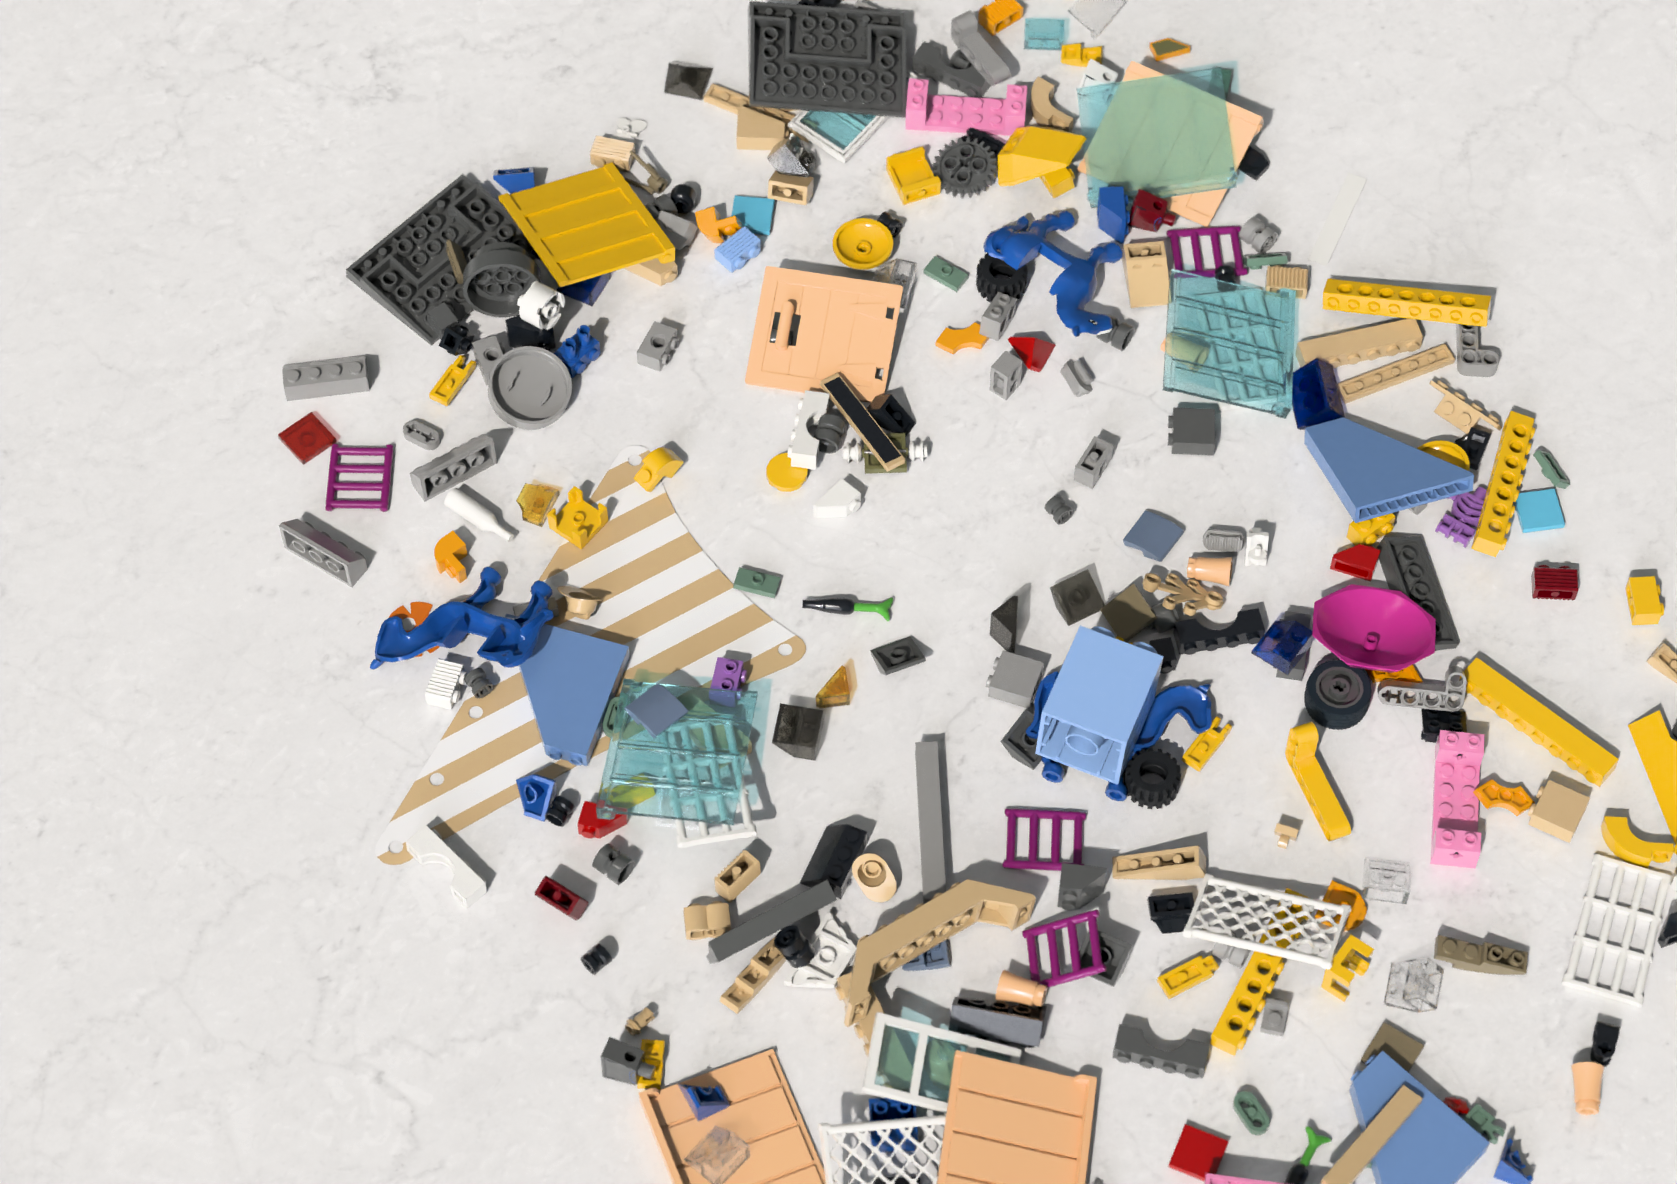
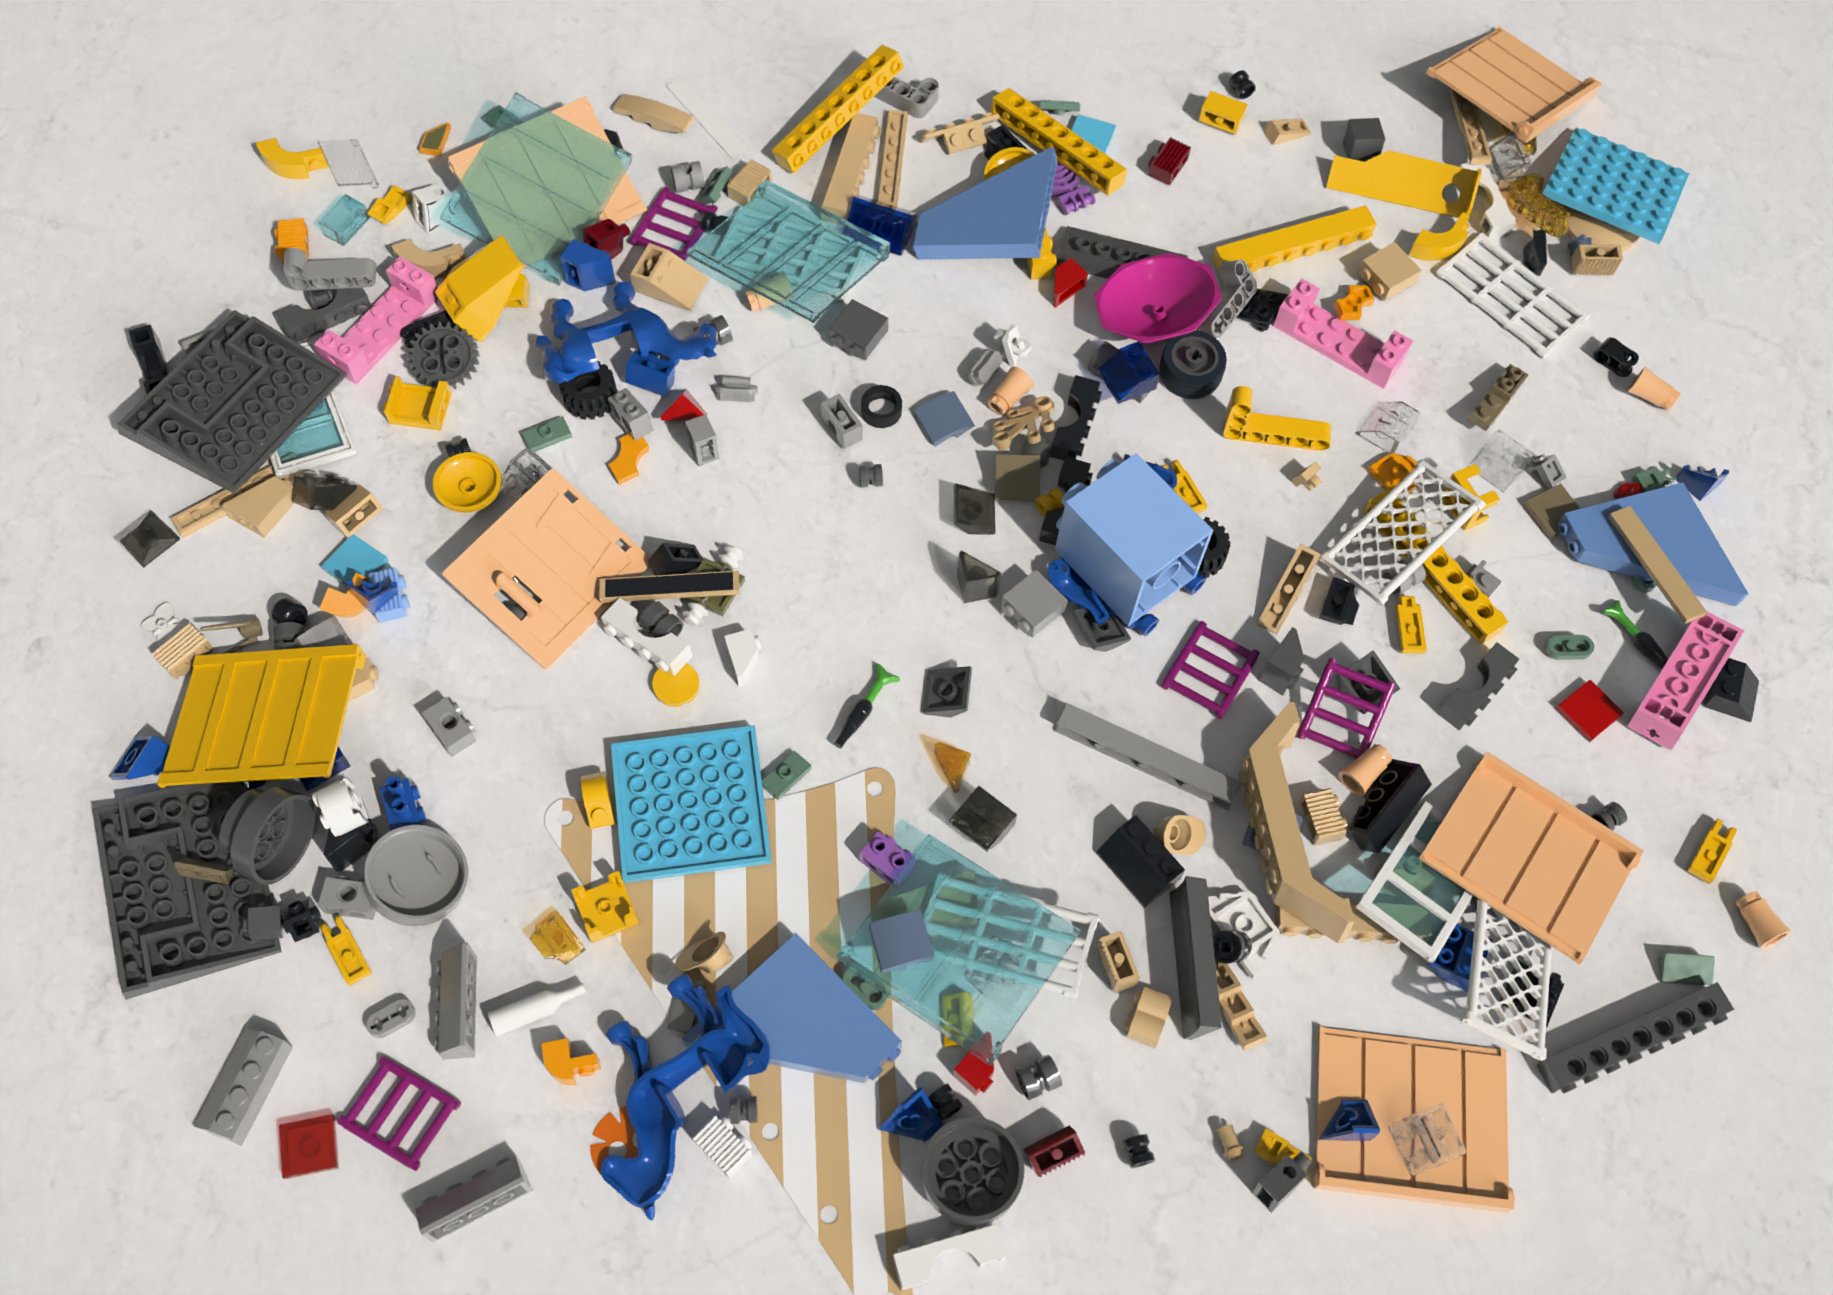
camera: 65 degrees left, 5 degrees up
(527, 824) = (981, 1136): none -> dark grey wheel
(693, 531) = (690, 804): none -> medium azure plate
(722, 235) = (373, 595): none -> blue slope
(958, 976) = (1323, 816): none -> tan brick
(1044, 310) = (651, 372): none -> blue brick
(1135, 472) = (881, 392): none -> black tyre
(1306, 178) = (659, 115): none -> tan slope
(1429, 1028) = (1548, 469): none -> light grey bracket

